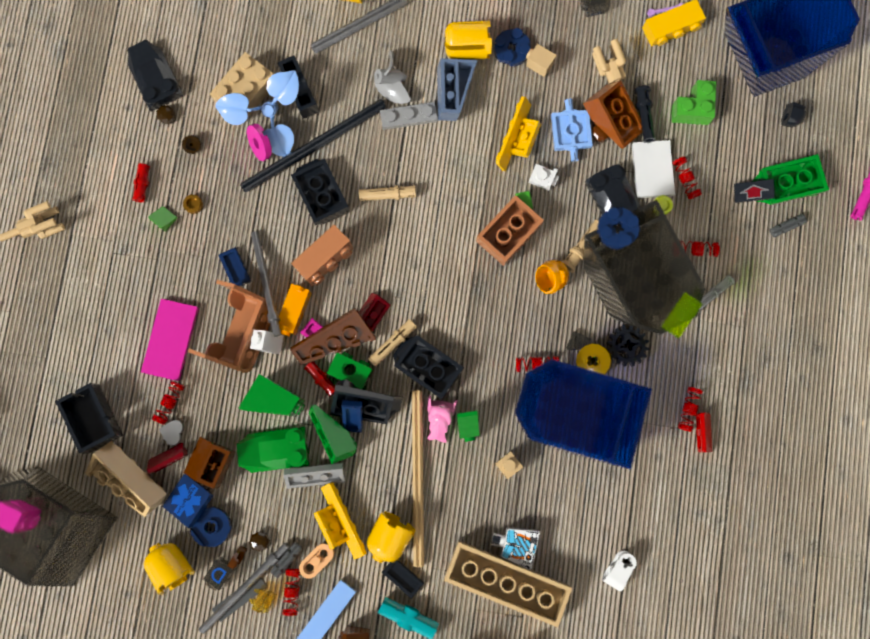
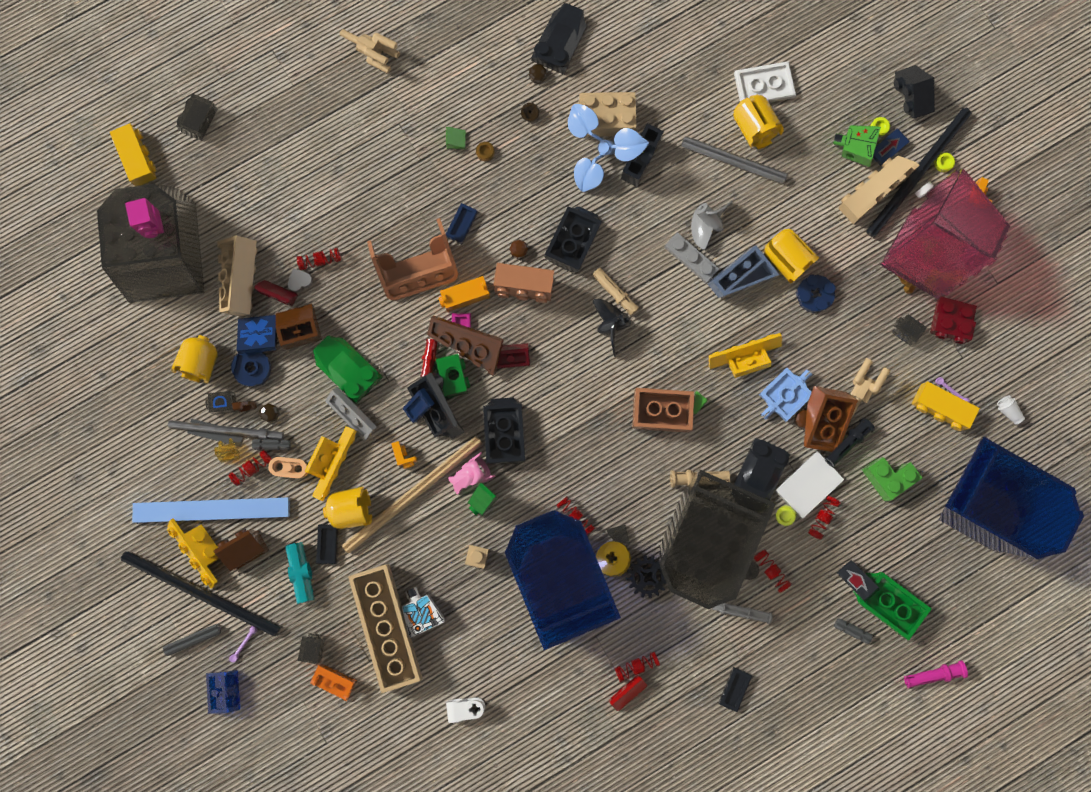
camera: 45 degrees right, 0 degrees up
(88, 418) = (260, 210): black piece -> none
(141, 183) = (469, 99): red pin -> none
(170, 339) = (367, 220): dark pink tile -> none
(258, 142) = (572, 161): dark pink tile -> none
(266, 342) = (423, 294): white brick -> none
(271, 398) = (383, 333): green slope -> none
(273, 316) = (446, 282): flat silver bar -> none
(292, 240) = (518, 249): none -> reddish brown tile
(313, 145) = (606, 204): black axle -> none
(333, 436) = (392, 403): green slope -> none
(377, 460) = (400, 453): none -> light orange bracket
(398, 337) = (501, 390): tan pin -> none
(409, 213) = (612, 319): none -> black piece
(540, 60) = (822, 324): tan brick -> none
(543, 177) = (730, 403): white bracket -> none
(552, 275) = (654, 471): light orange helmet -> none
(628, 222) = (737, 496): dark blue plate -> none
(681, 315) = (697, 595): clear neon green plate -> none
(764, 349) = (735, 689): none -> black tile
(793, 115) = (949, 564): black piece -> none

